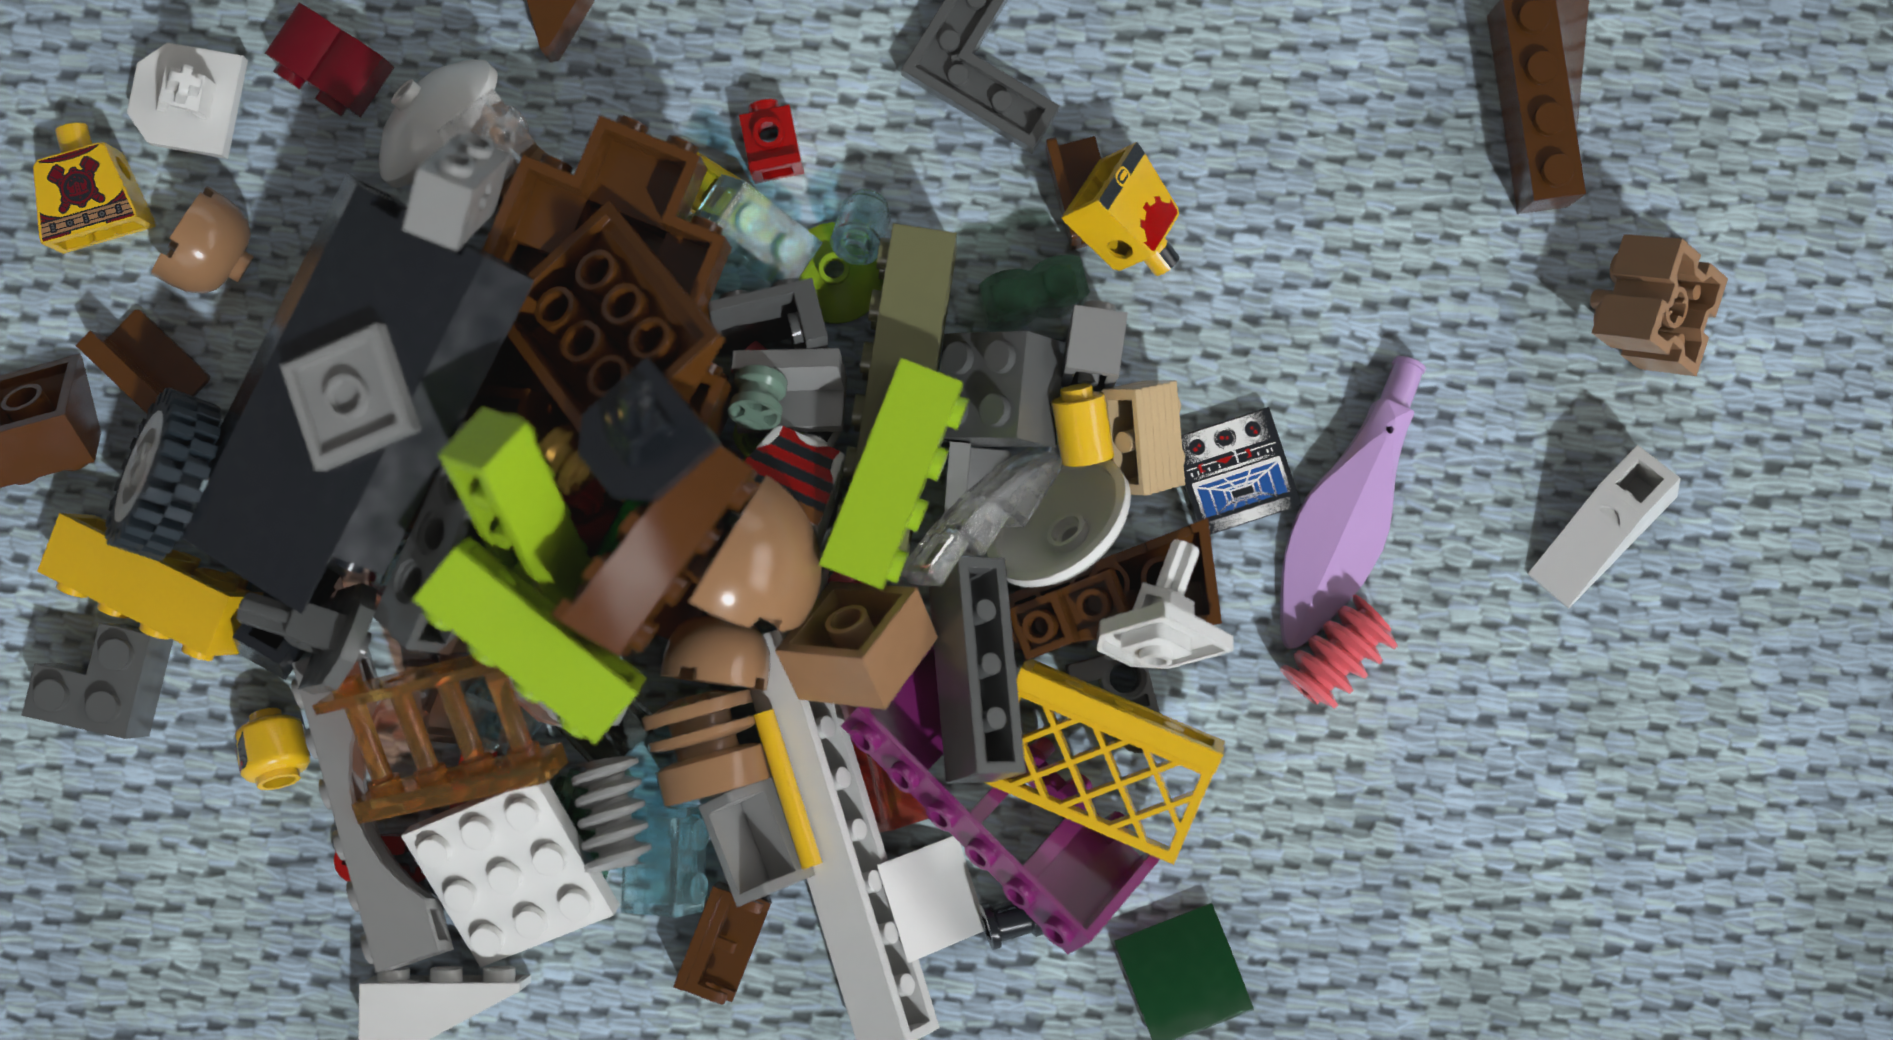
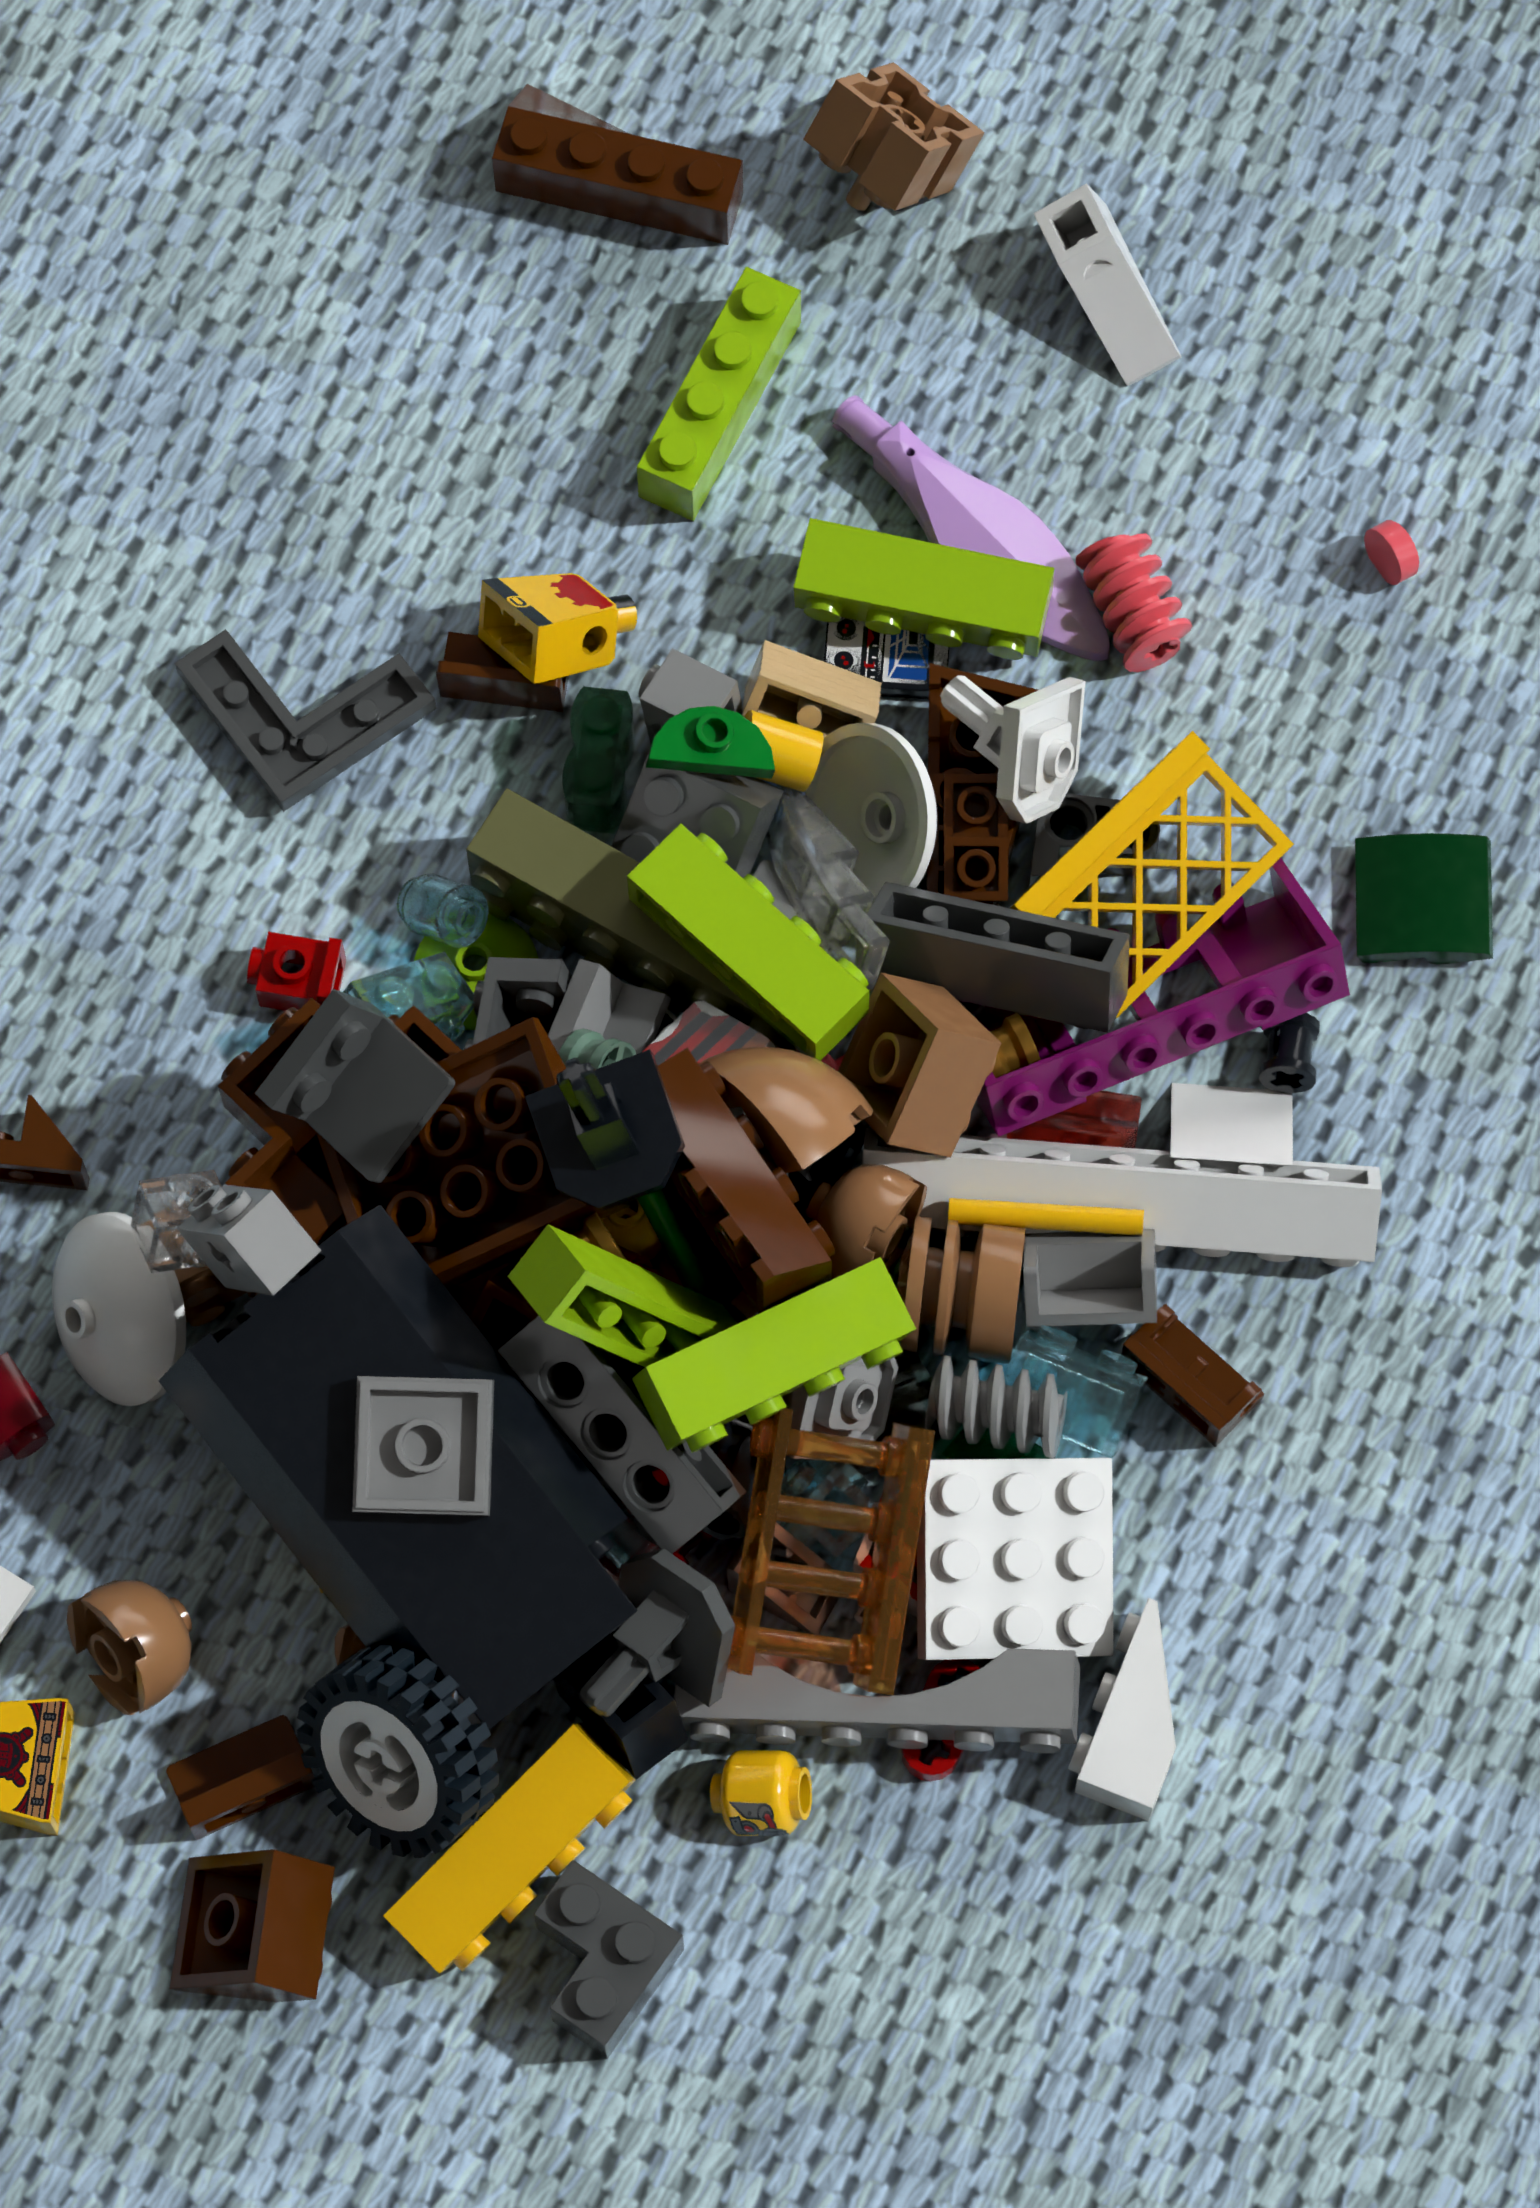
camera: 70 degrees left, 15 degrees down
(633, 222) = (358, 1084): none -> dark grey bracket
(907, 708) = (1016, 1047): none -> pearl gold wheel
(1054, 377) = (712, 742): none -> green plate
(1275, 485) = (923, 589): none -> lime brick
(1381, 259) = (719, 394): none -> lime brick
(1468, 841) = (1392, 551): none -> coral tile

